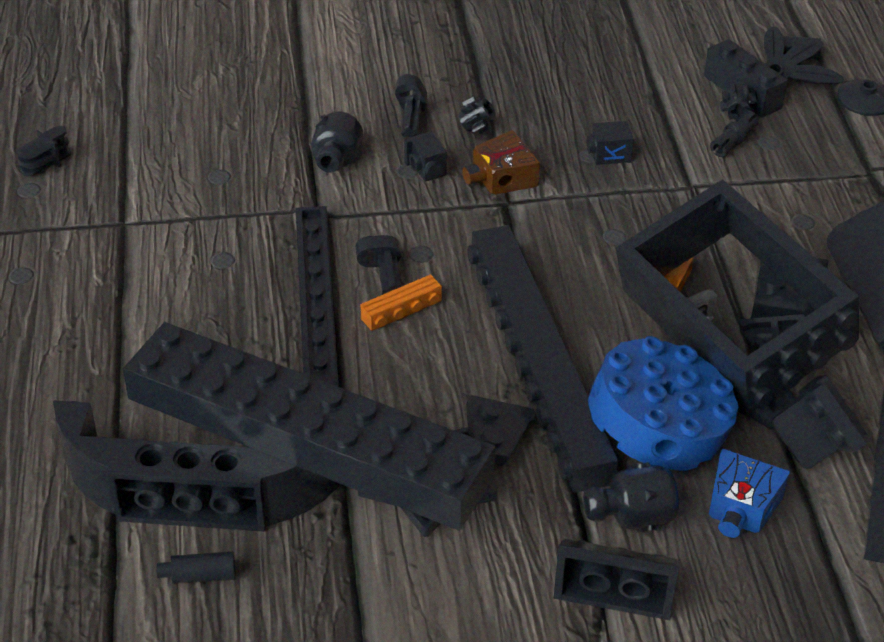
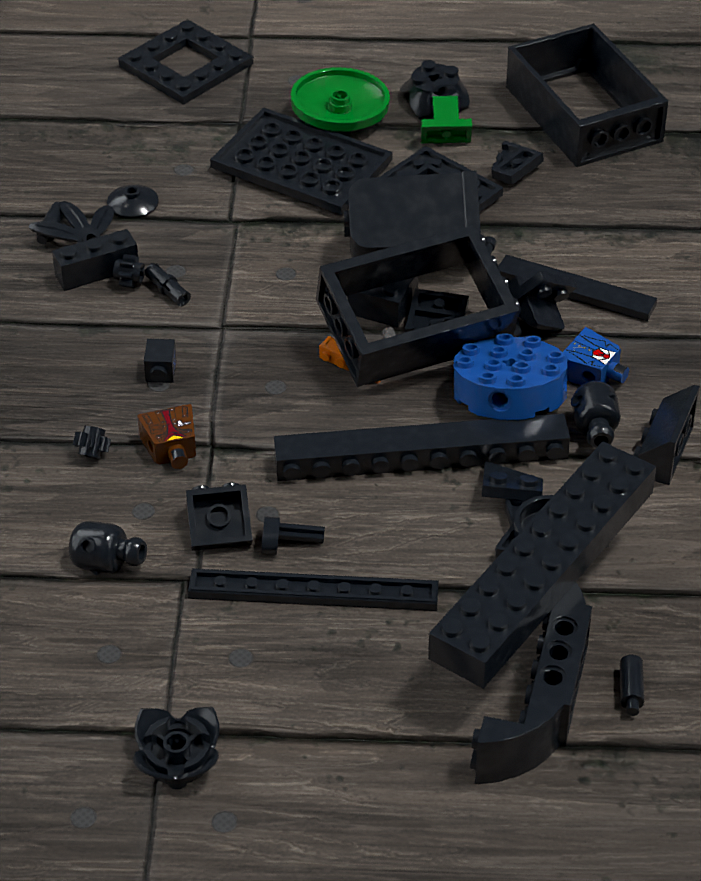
camera: 80 degrees left, 0 degrees up
(44, 151) = (39, 792): black arm -> none
(89, 223) = (176, 748): none -> black brick
(395, 208) = (219, 516): none -> black plate
(401, 302) = (339, 529): orange piece -> none
(411, 104) = (46, 486): black piece -> none
(426, 156) = (143, 485): black brick -> none

